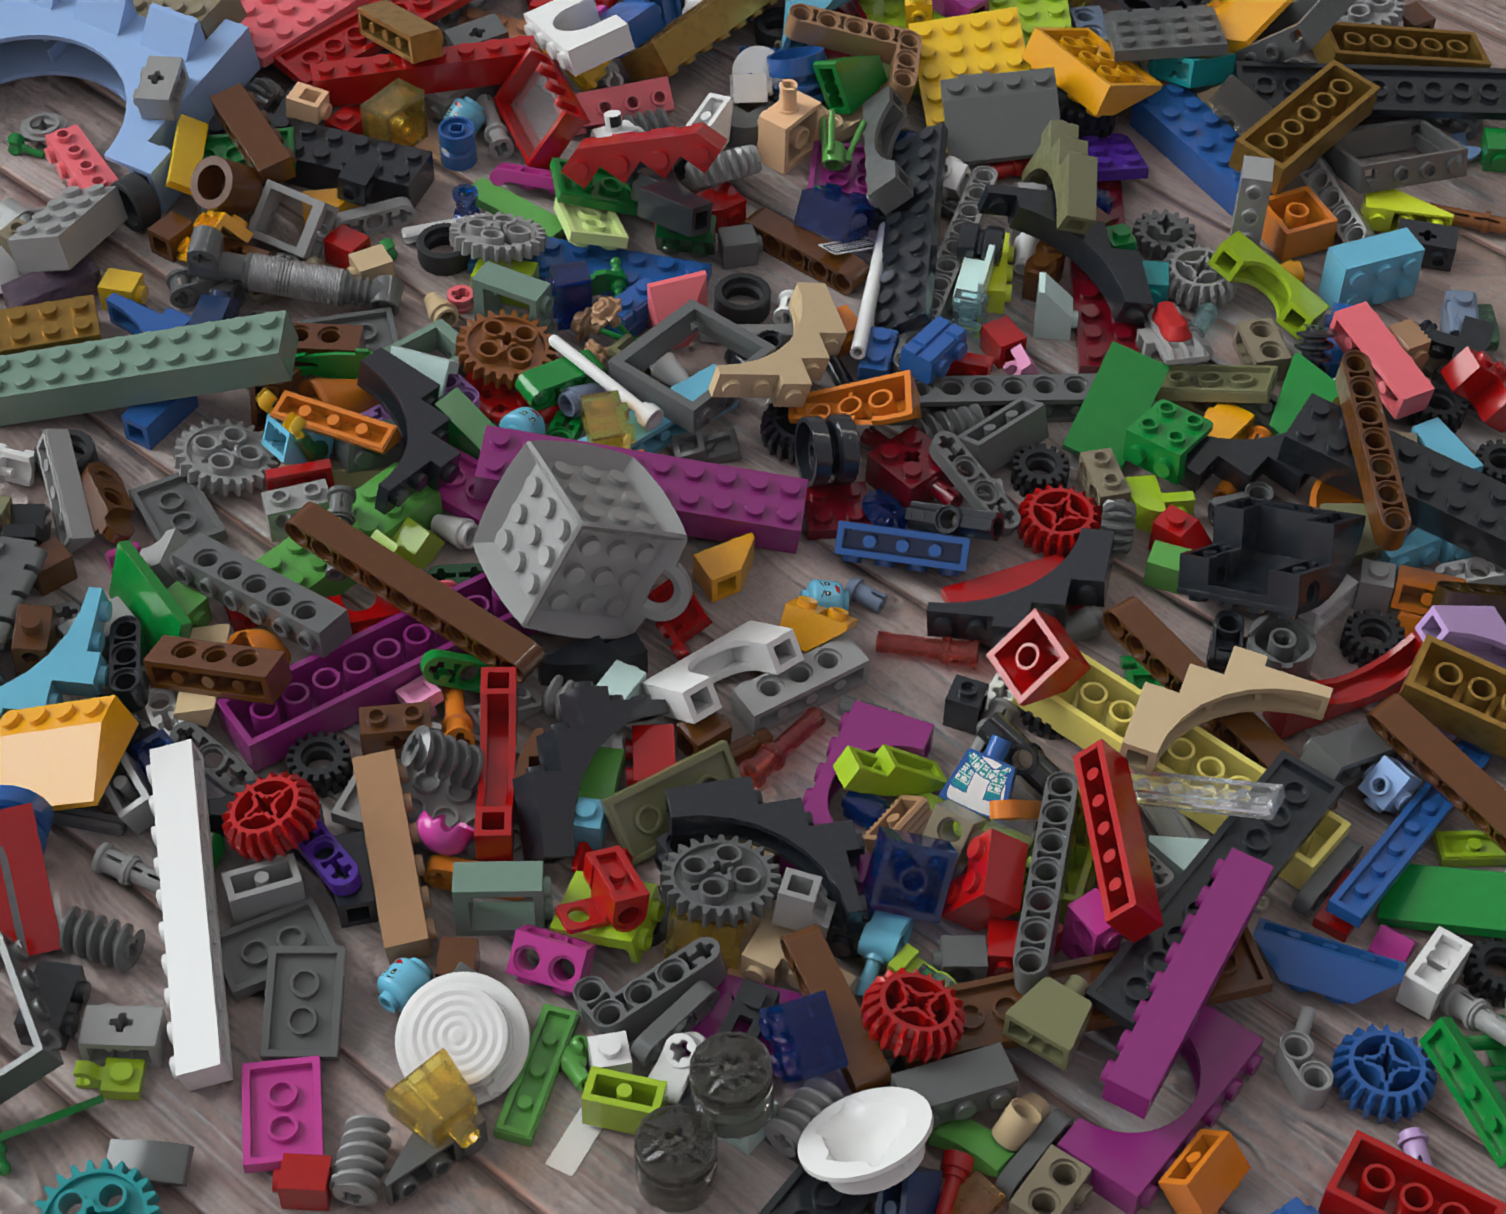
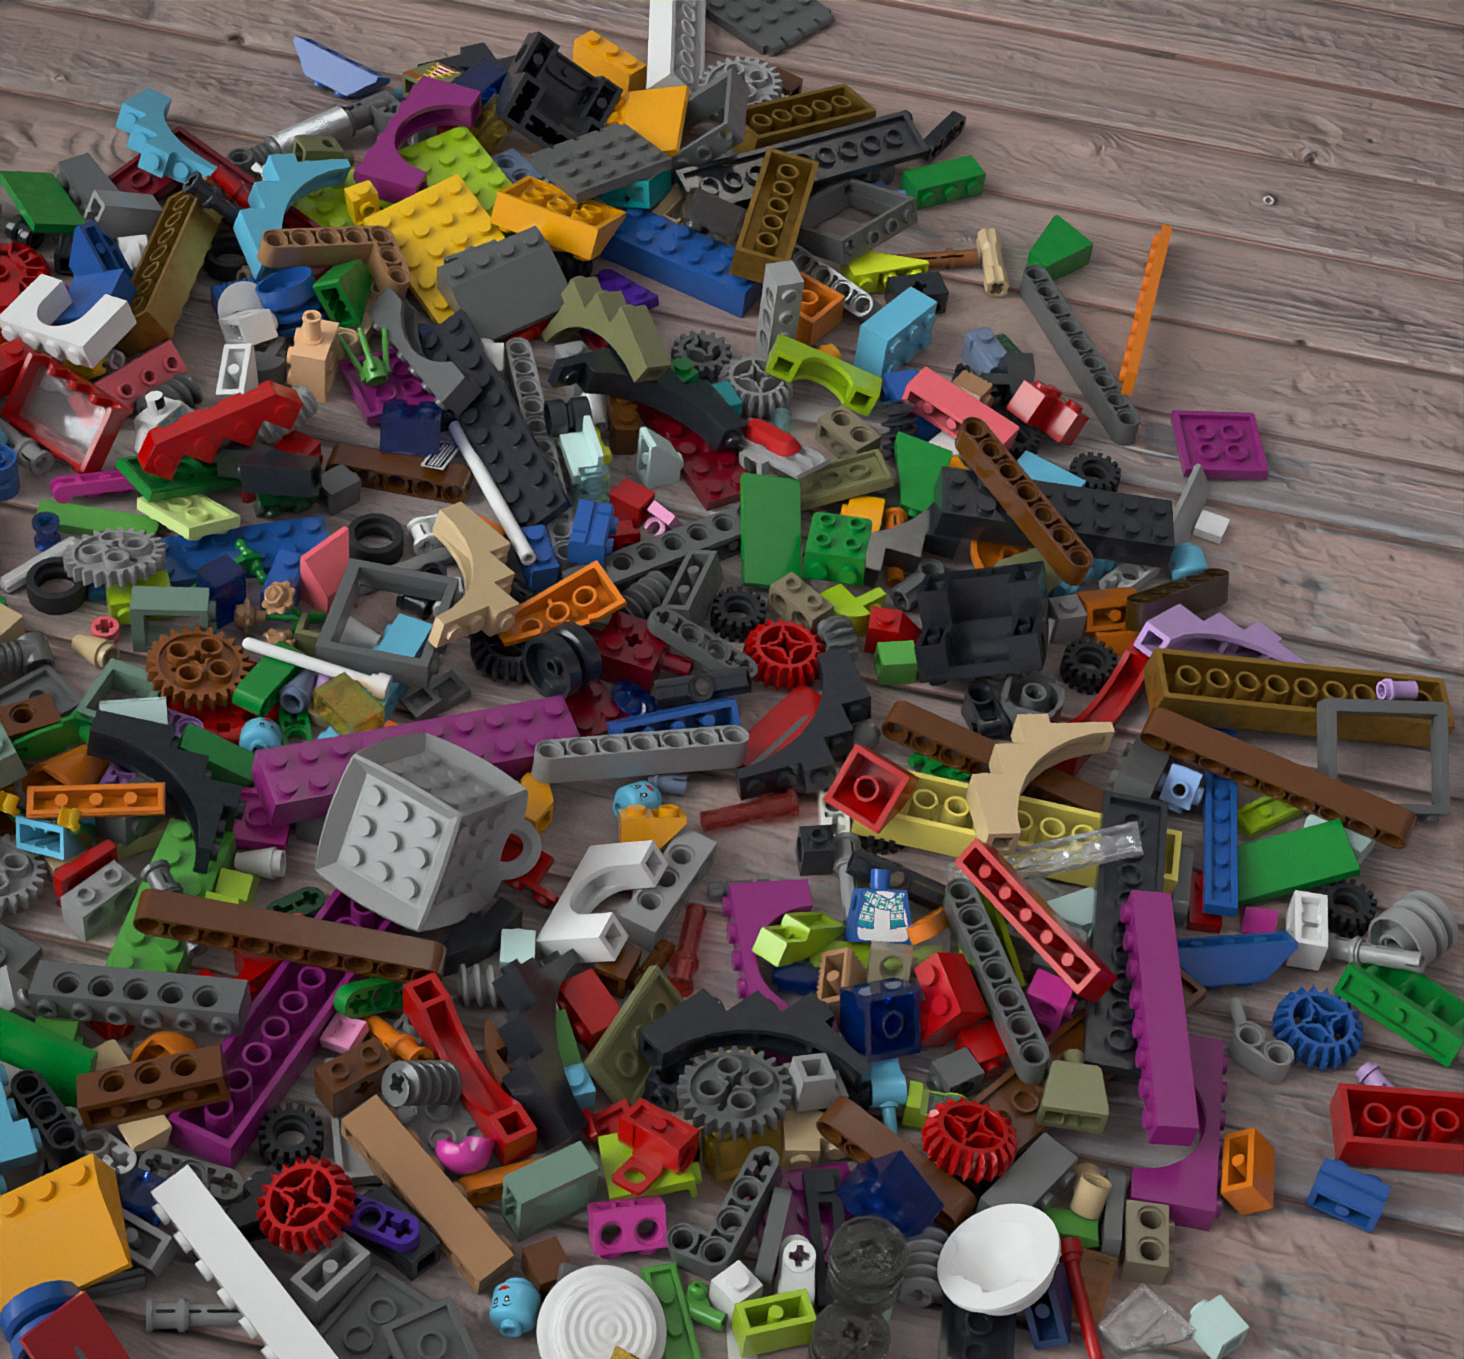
camera: 35 degrees left, 0 degrees up
(848, 556) = (639, 754): none -> light grey beam

